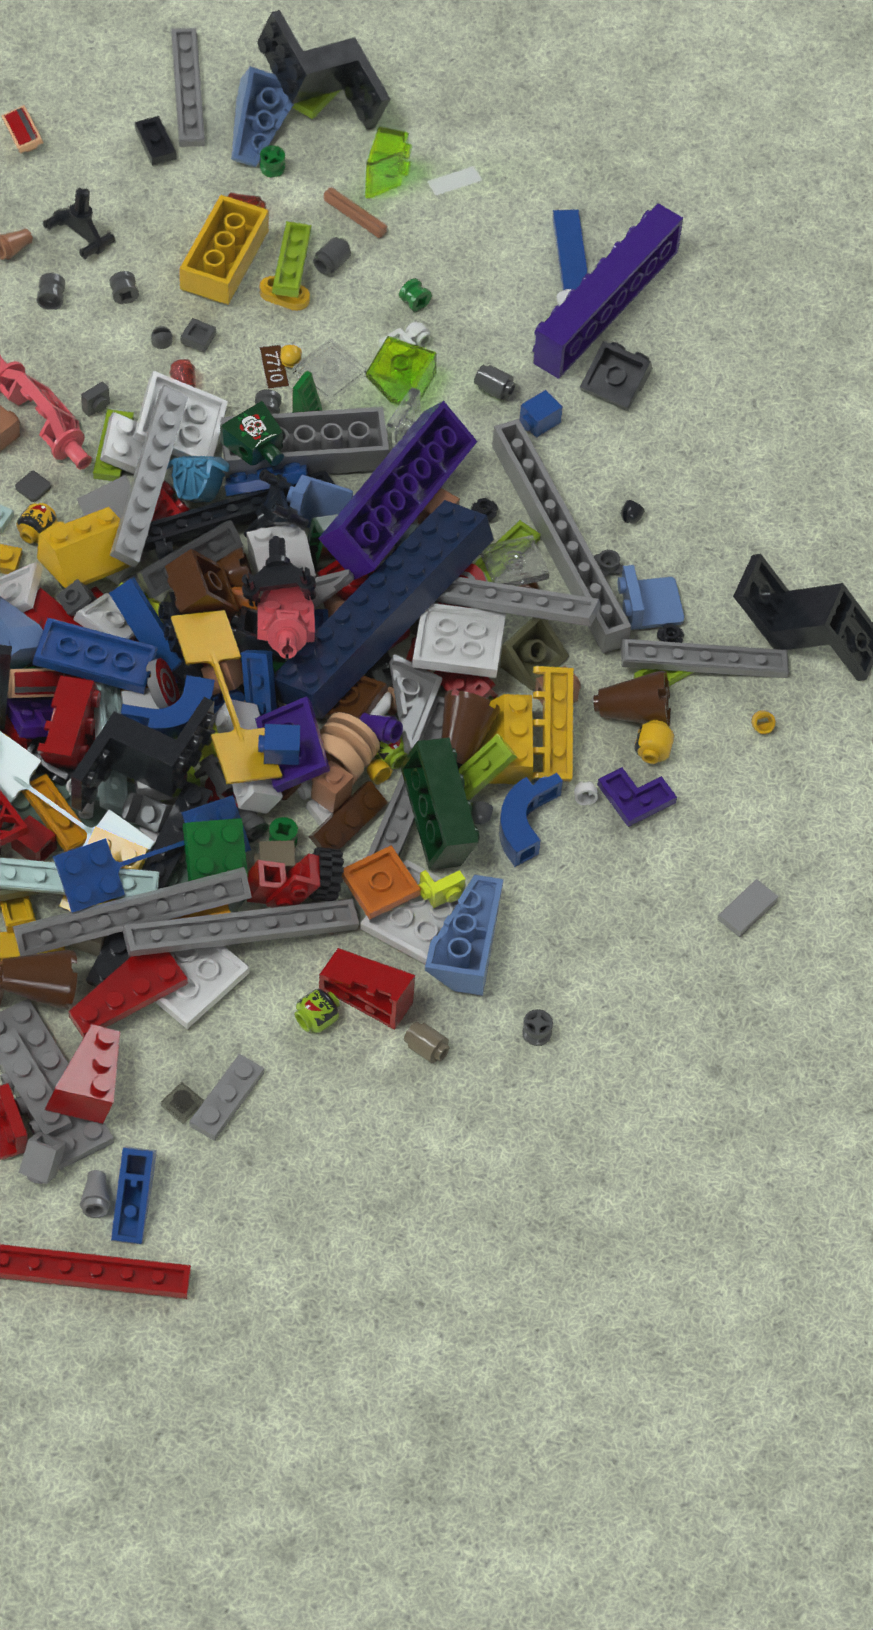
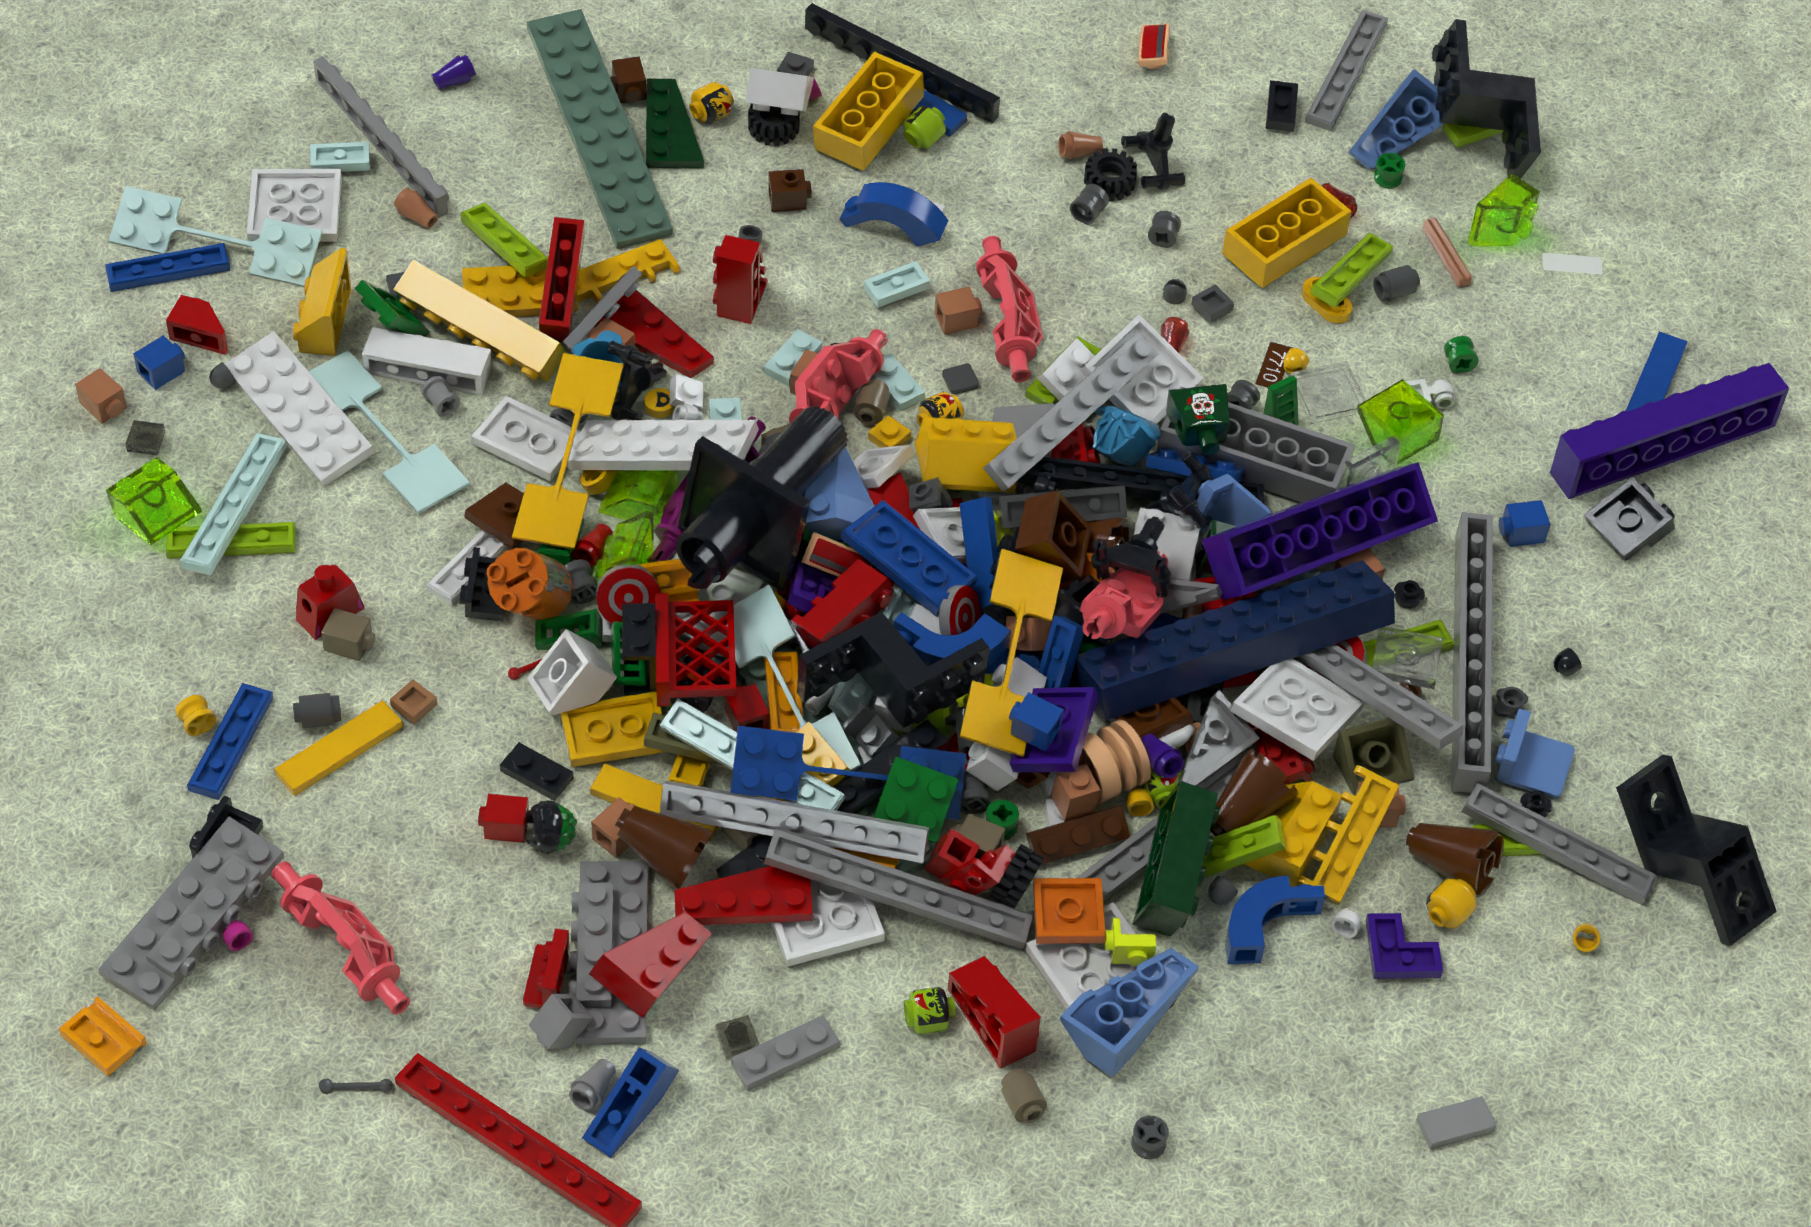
camera: 30 degrees right, 5 degrees down
(48, 247) = (1114, 163): none -> black tyre
(95, 399) = (1070, 321): dark grey plate -> none
(494, 381) = (1494, 472): dark grey brick -> none

